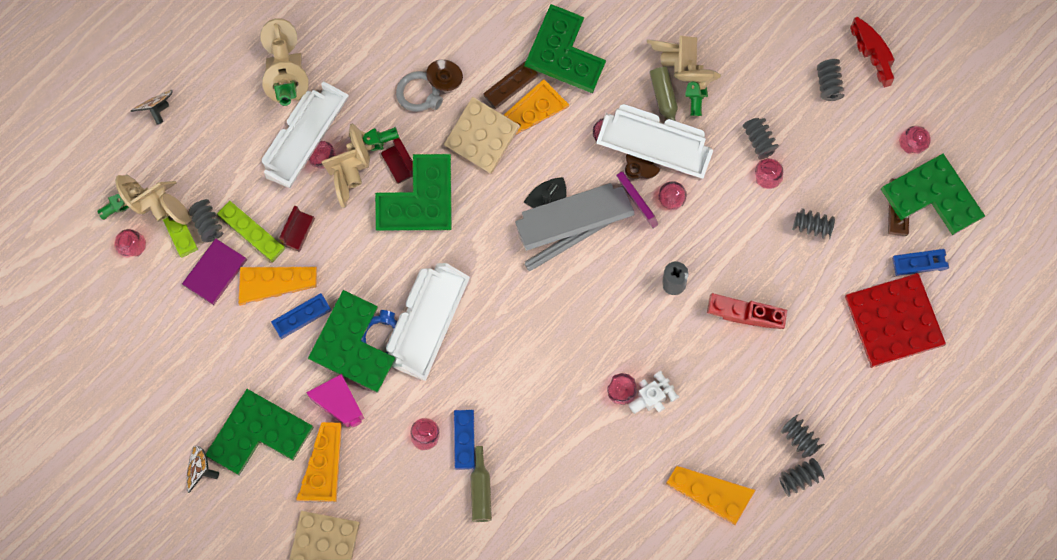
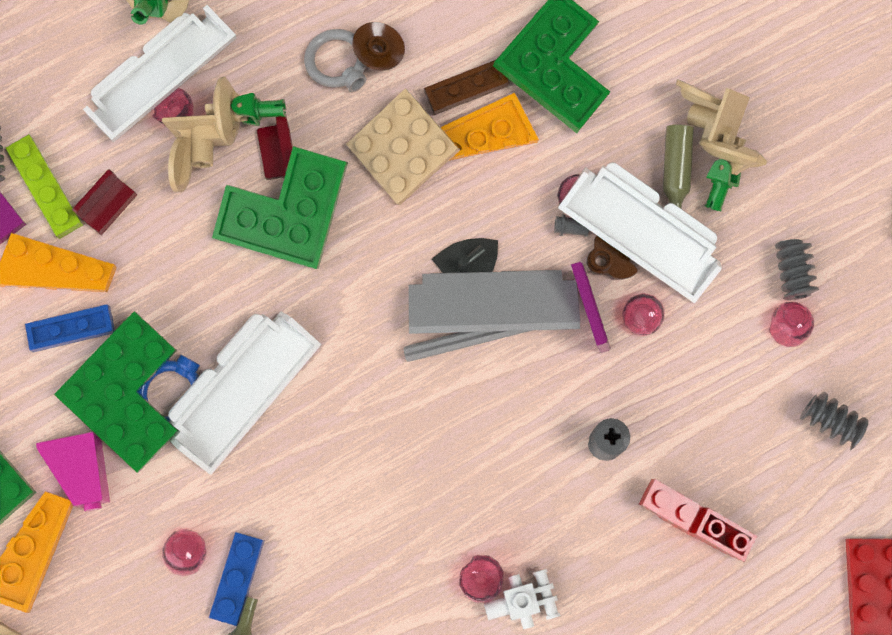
camera: 15 degrees right, 5 degrees up
(607, 153) = (567, 225): none -> dark grey pin

